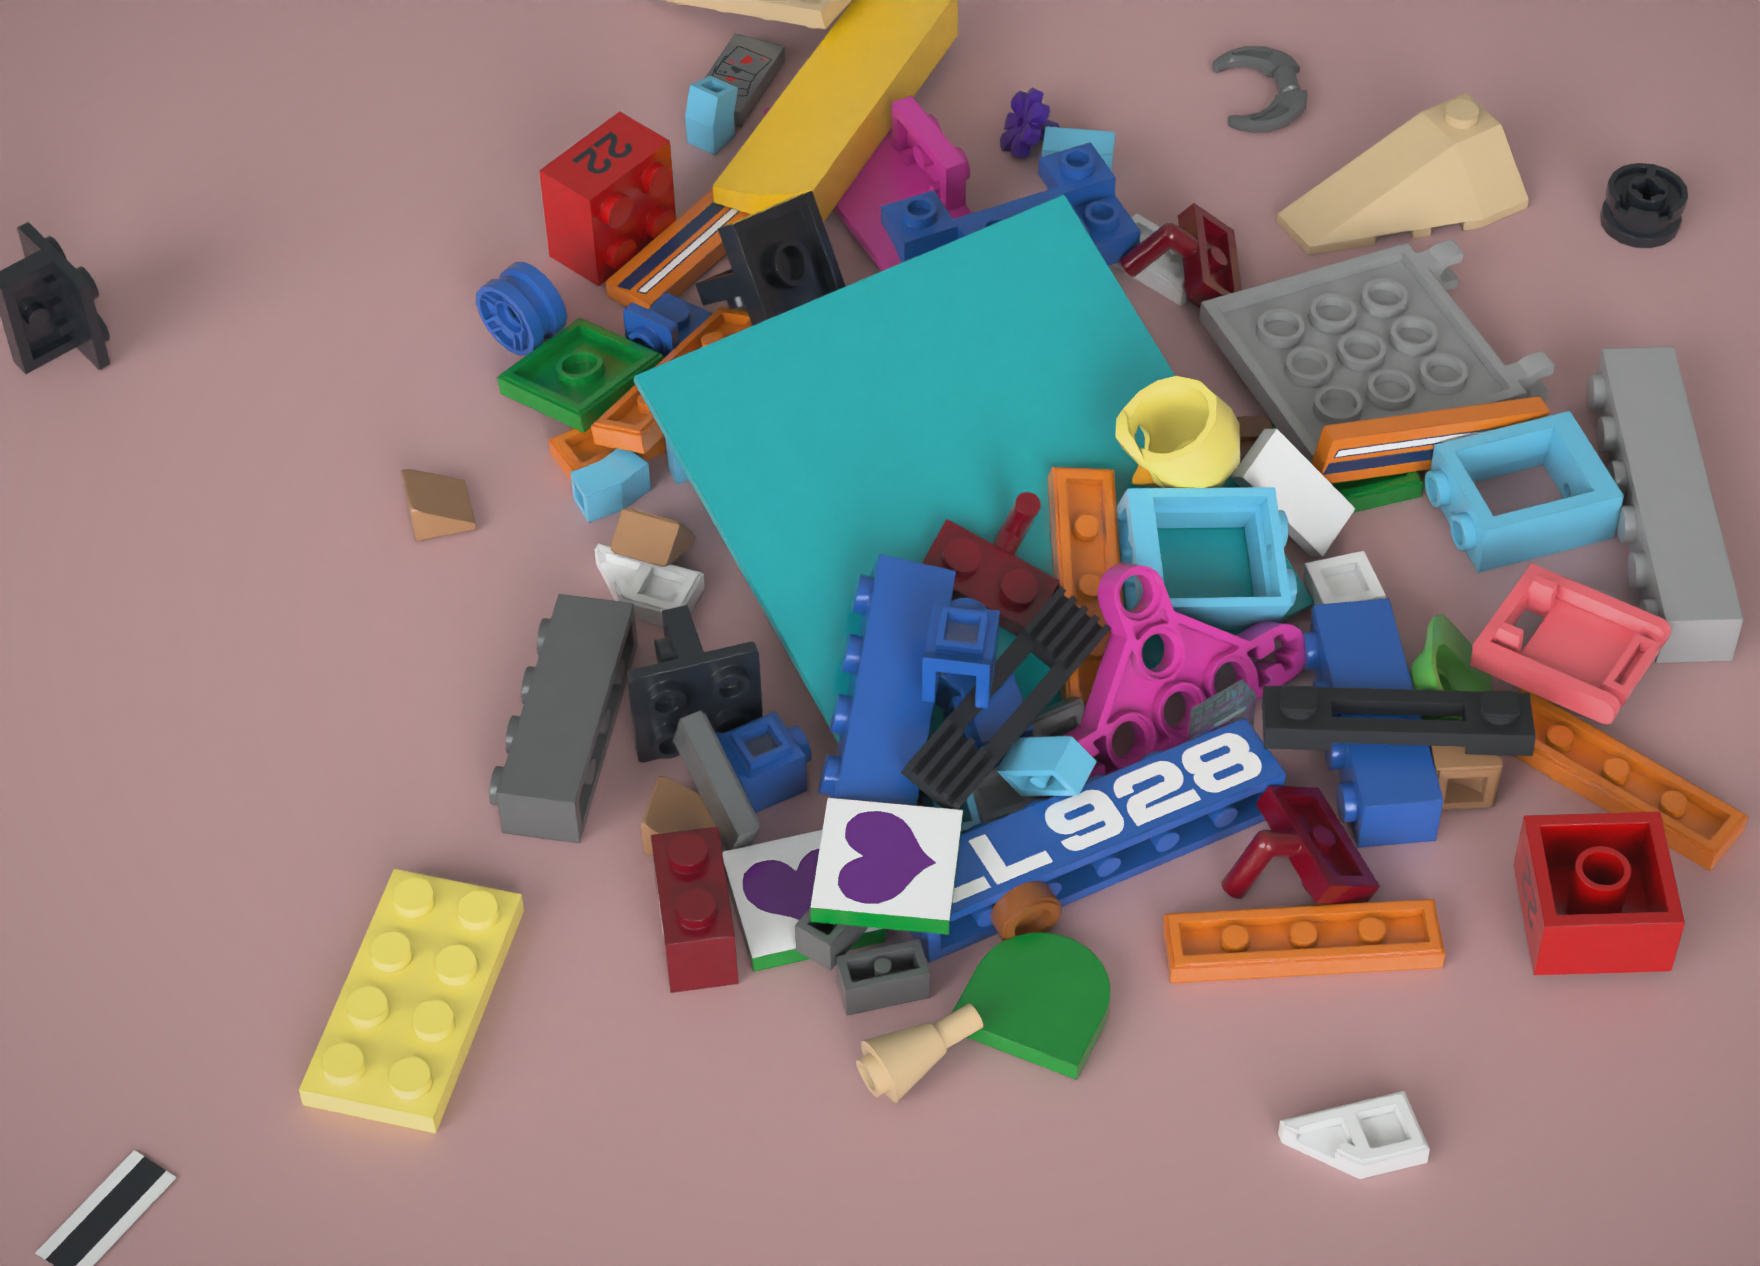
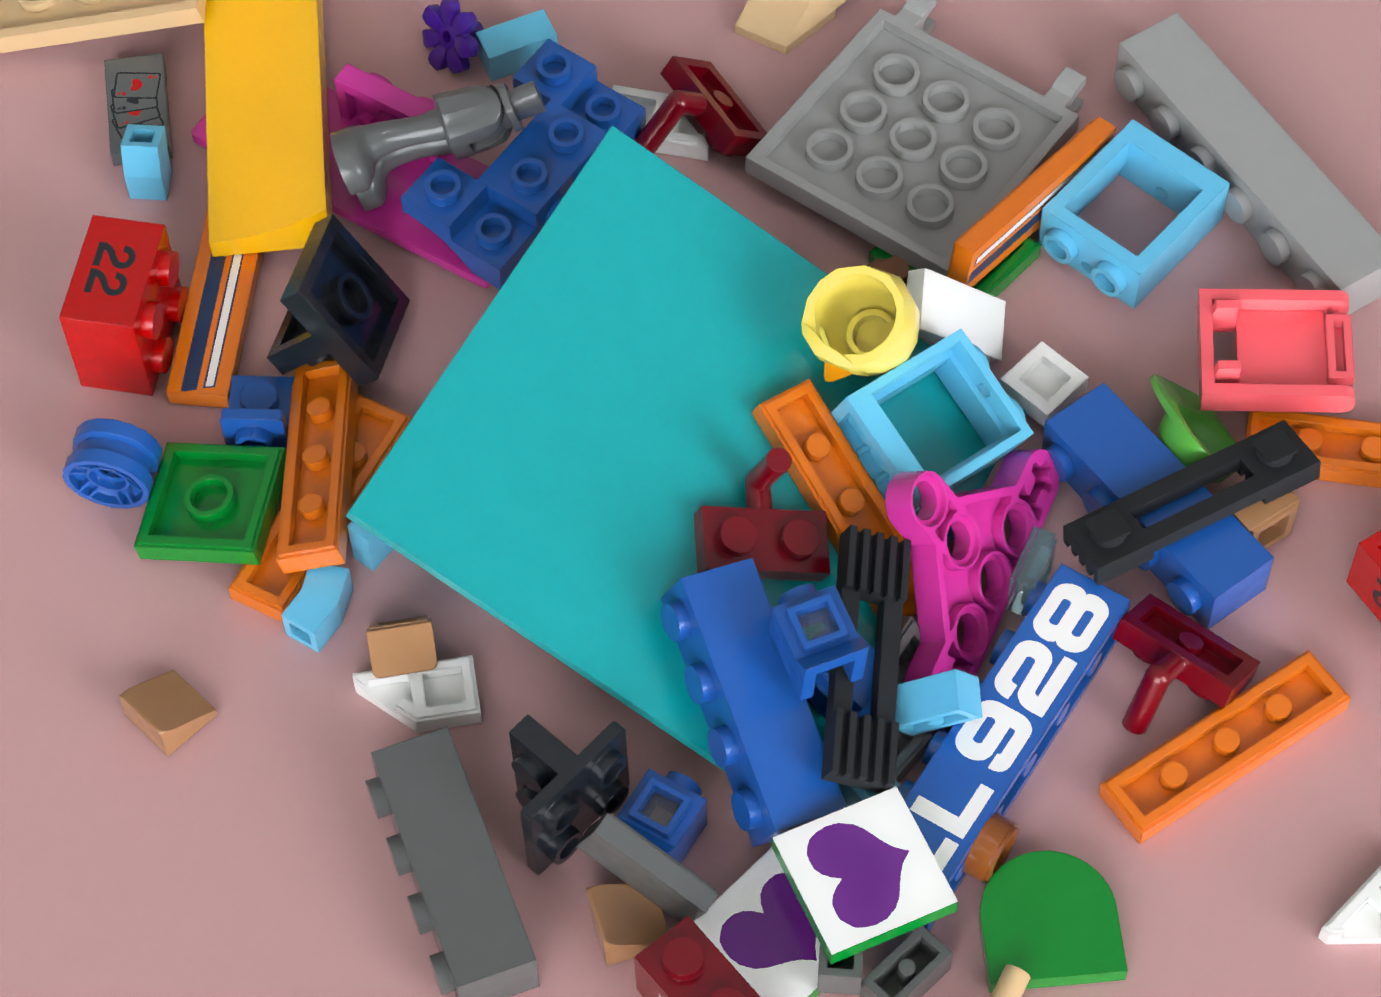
camera: 30 degrees left, 10 degrees up
(964, 168) = (460, 124): none -> dark grey piece

